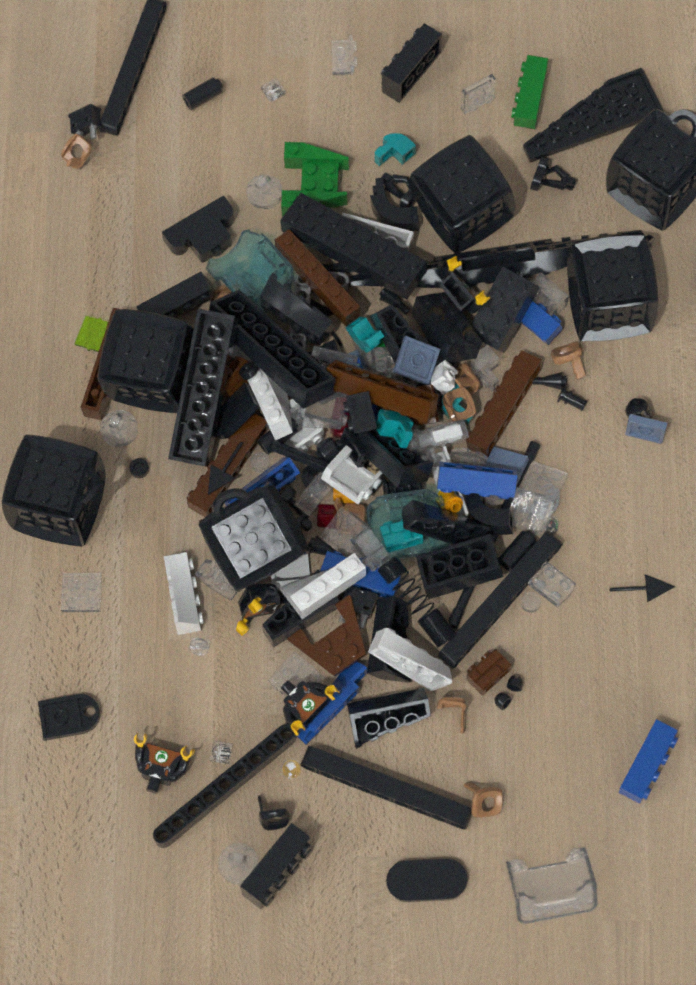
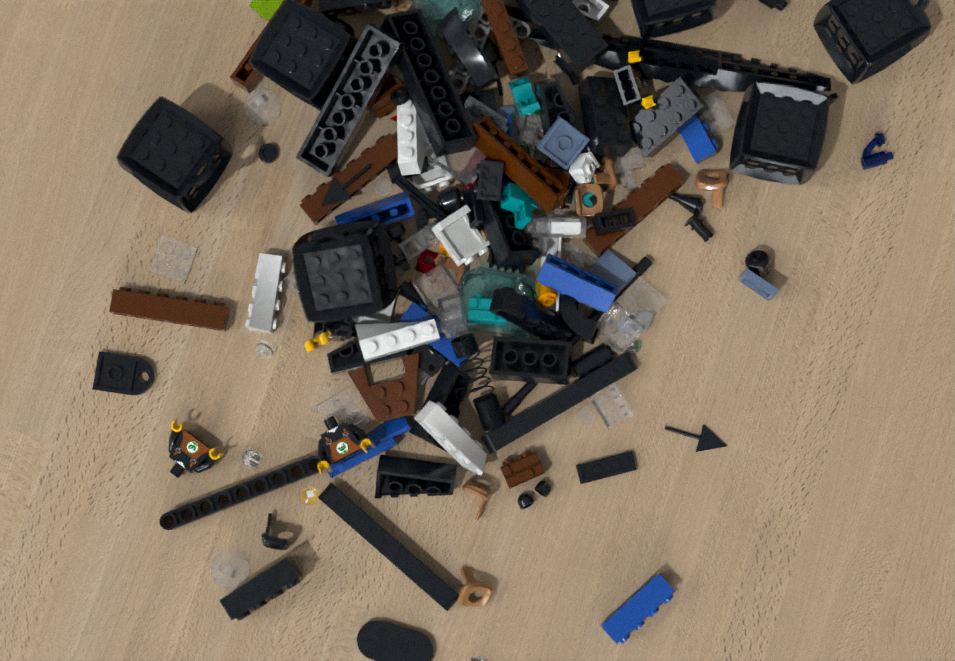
camera: 15 degrees right, 15 degrees up
(93, 639) = (169, 310): none -> reddish brown brick
(236, 411) = (376, 131): black tile -> none
(478, 421) = (600, 230): none -> black slope
(567, 644) = (606, 467): none -> black tile

